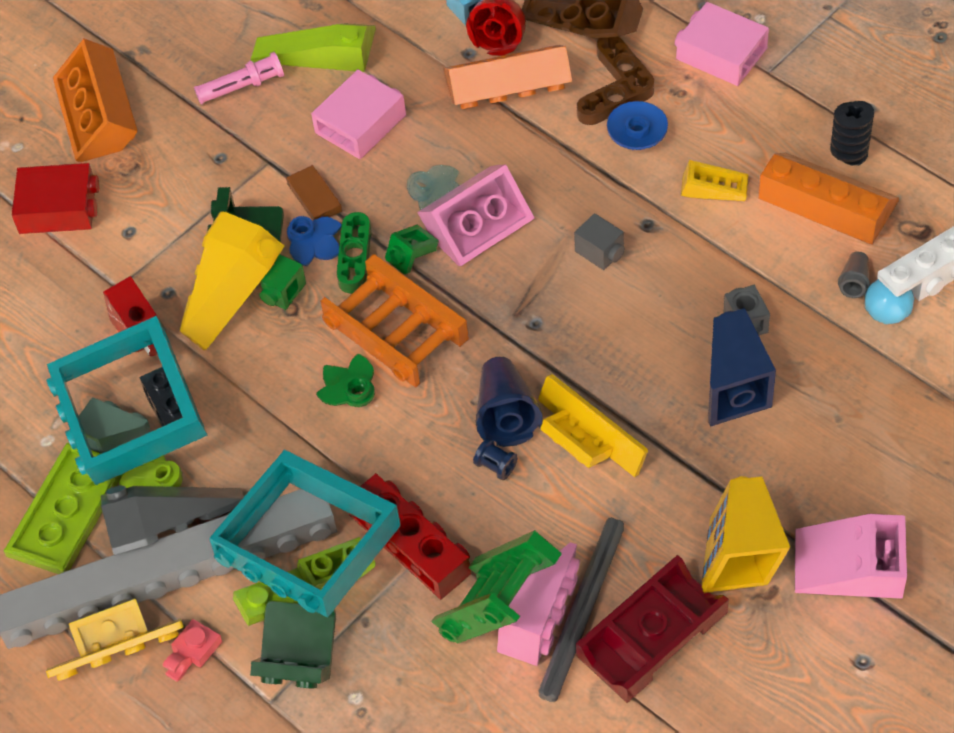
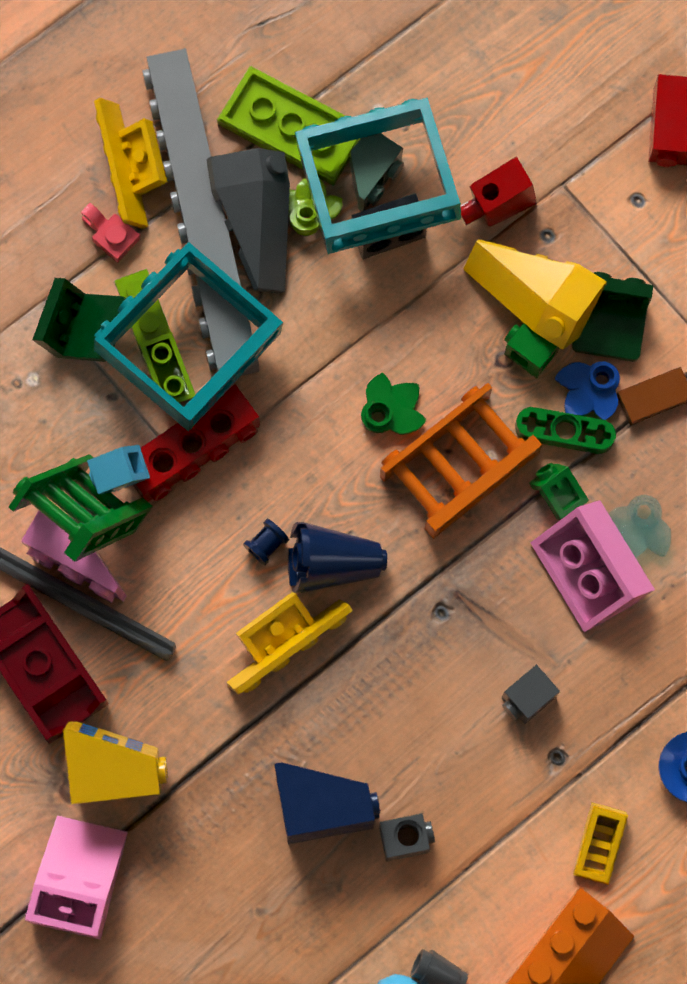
camera: 90 degrees right, 20 degrees up
(450, 574) = (118, 469): none -> medium azure brick

